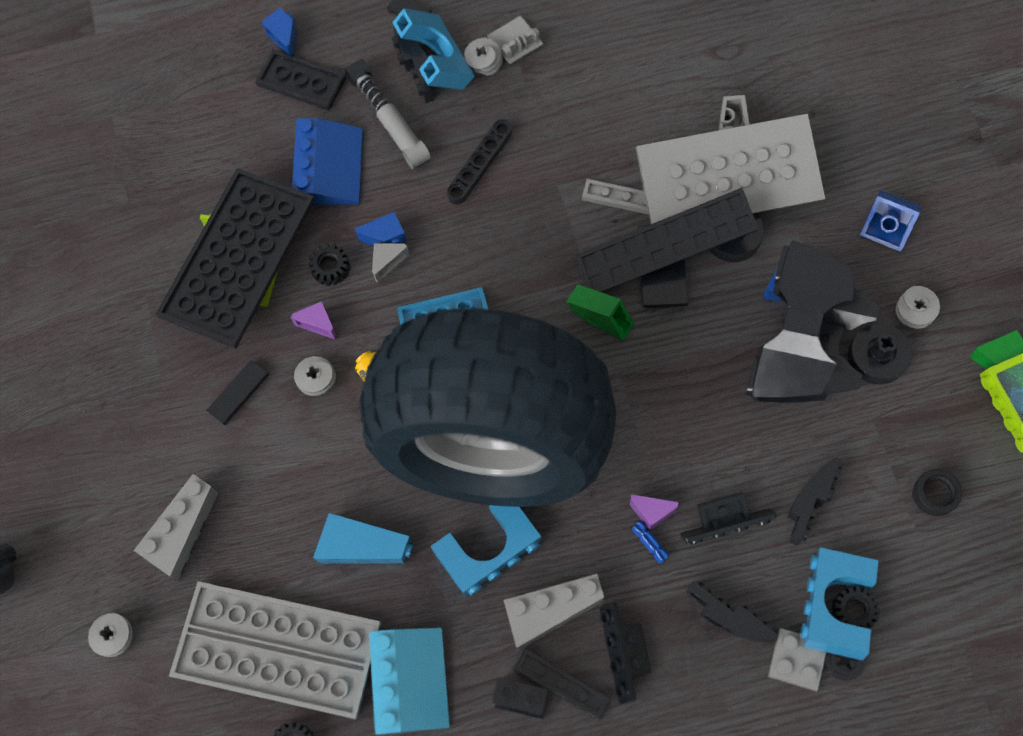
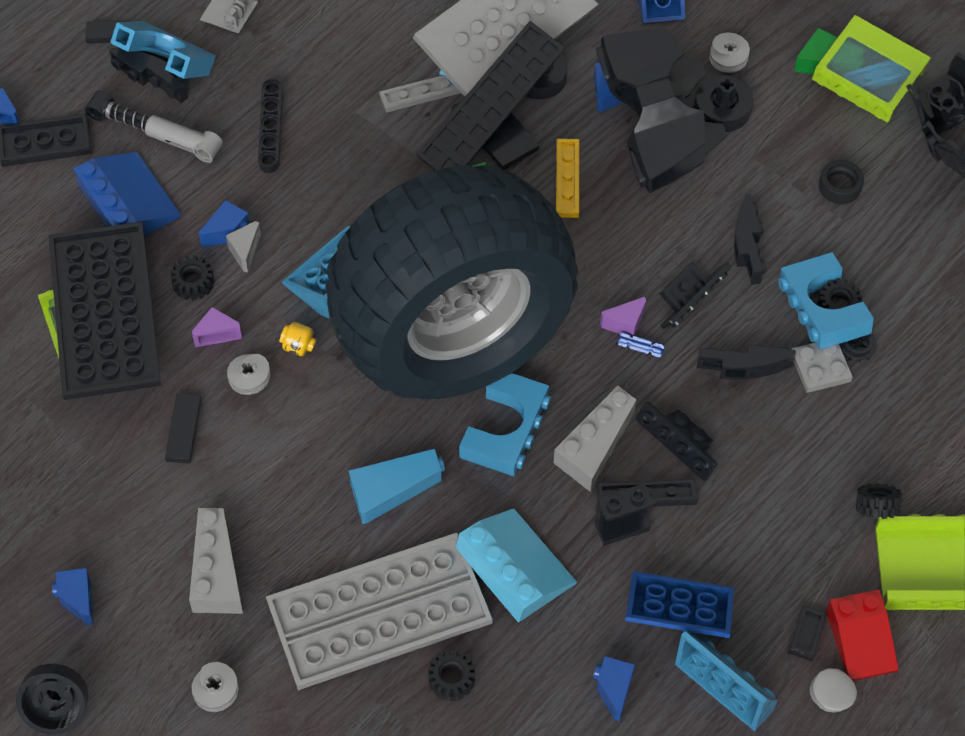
camera: 40 degrees left, 10 degrees down
(65, 488) = (74, 593): none -> blue slope
(483, 56) = (211, 35): light grey piece -> none
(693, 347) = (567, 178): none -> yellow tile

